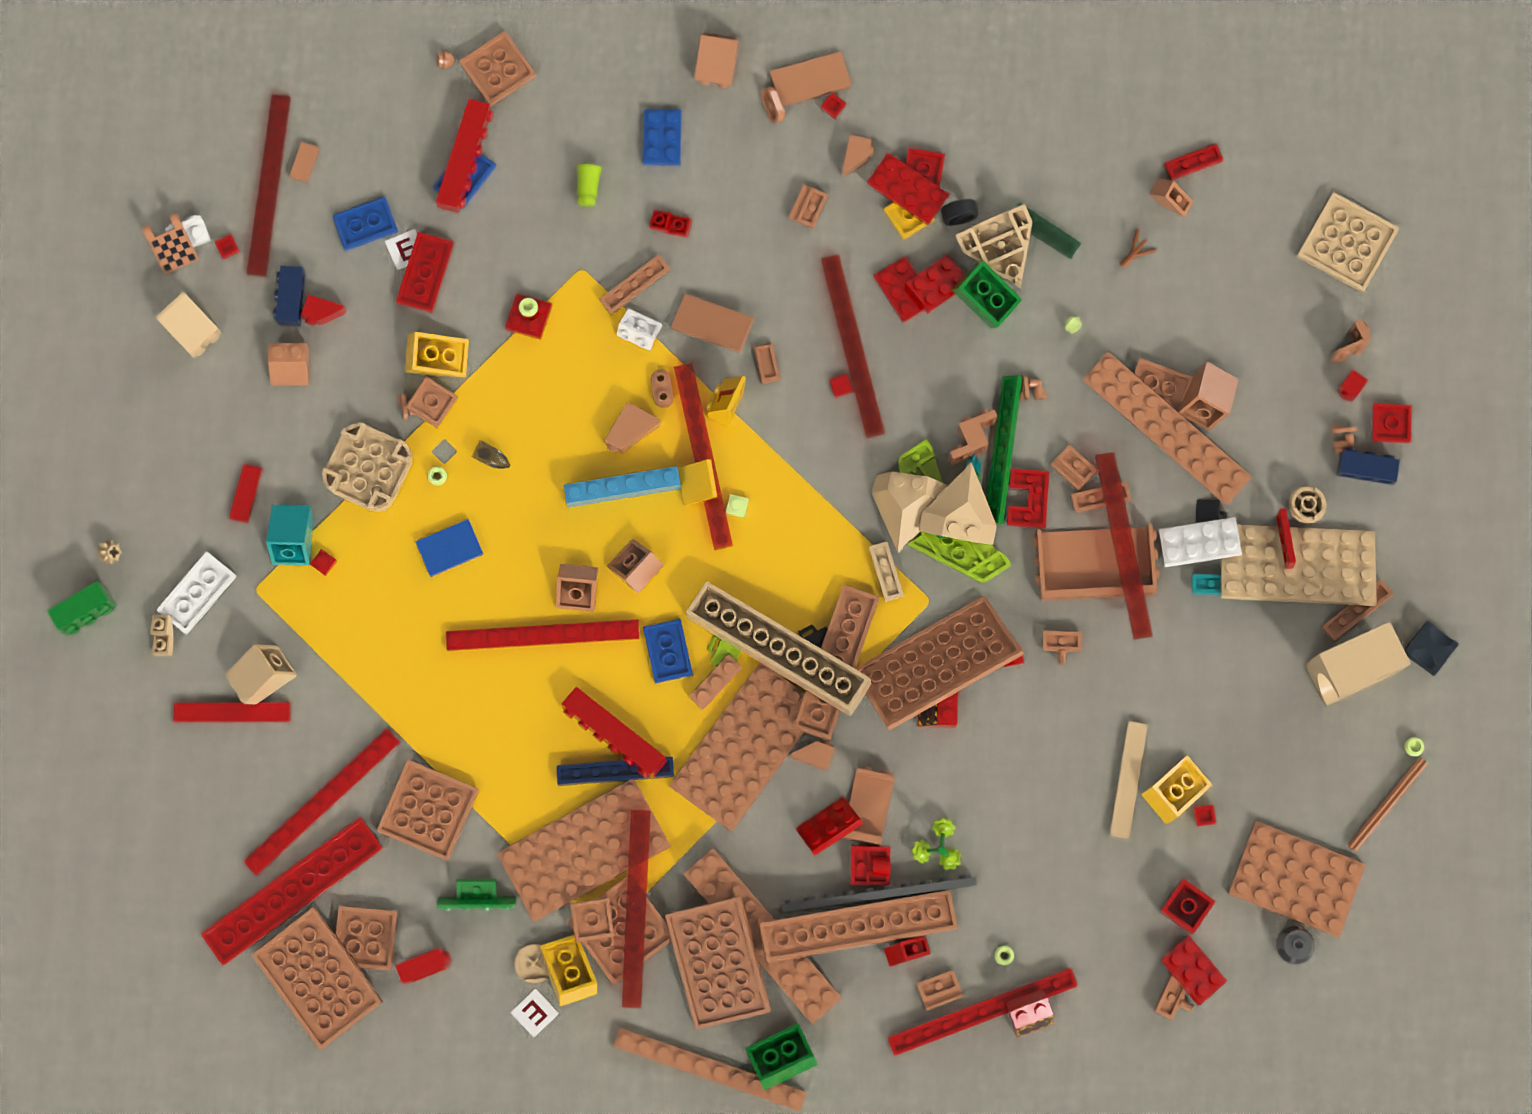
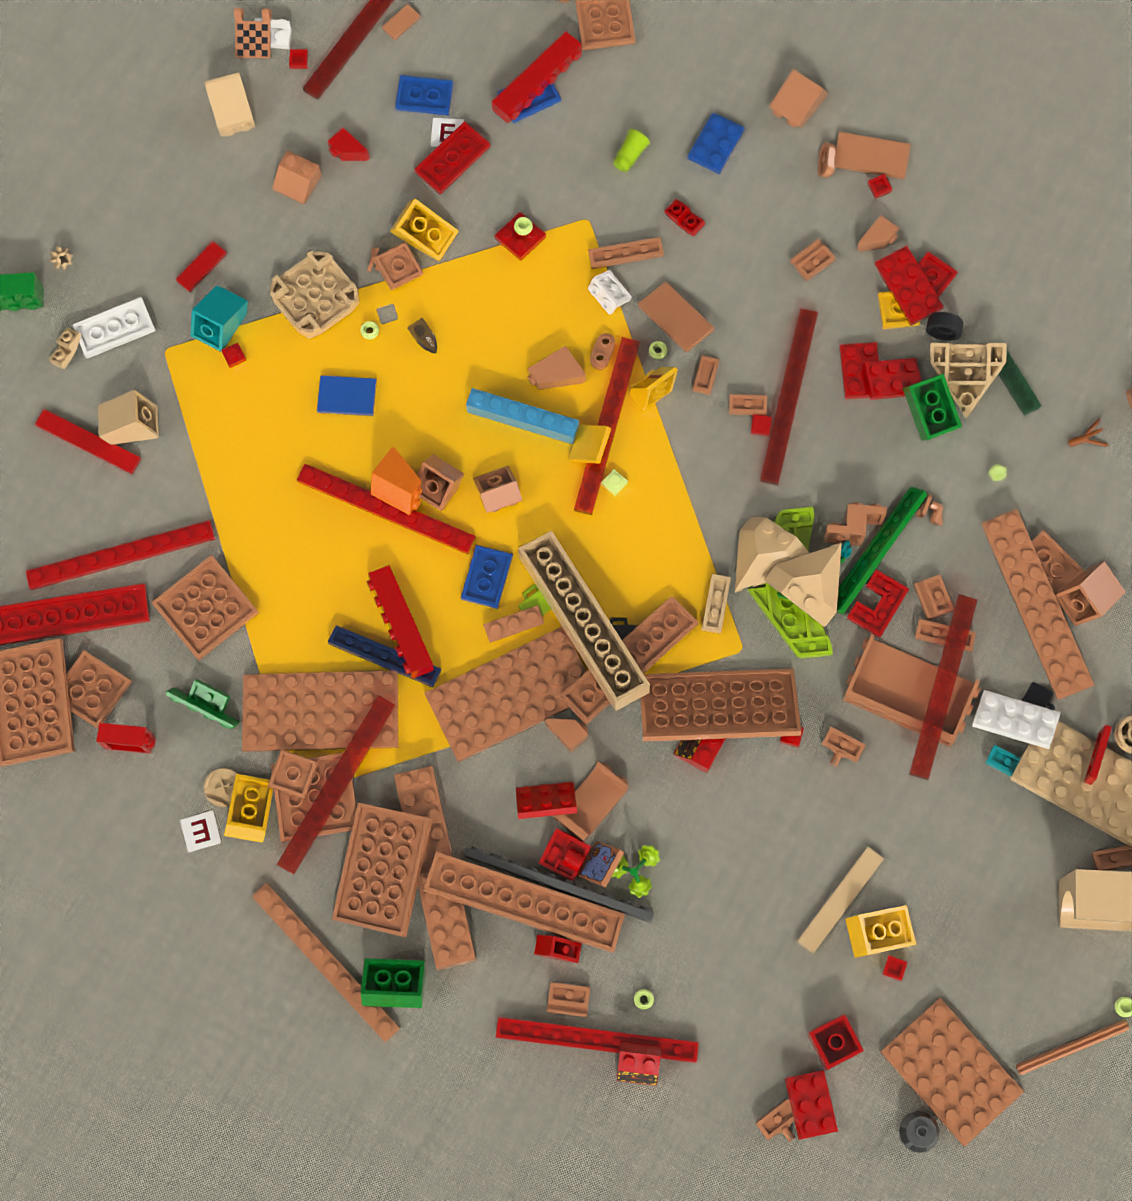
camera: 30 degrees right, 5 degrees down
(289, 295) = (328, 122): dark blue brick -> none
(543, 608) = (396, 483): none -> orange slope
(711, 356) = (658, 345): none -> yellowish green plate
(819, 373) = (747, 404): none -> nougat plate
(906, 857) = (600, 864): none -> tile

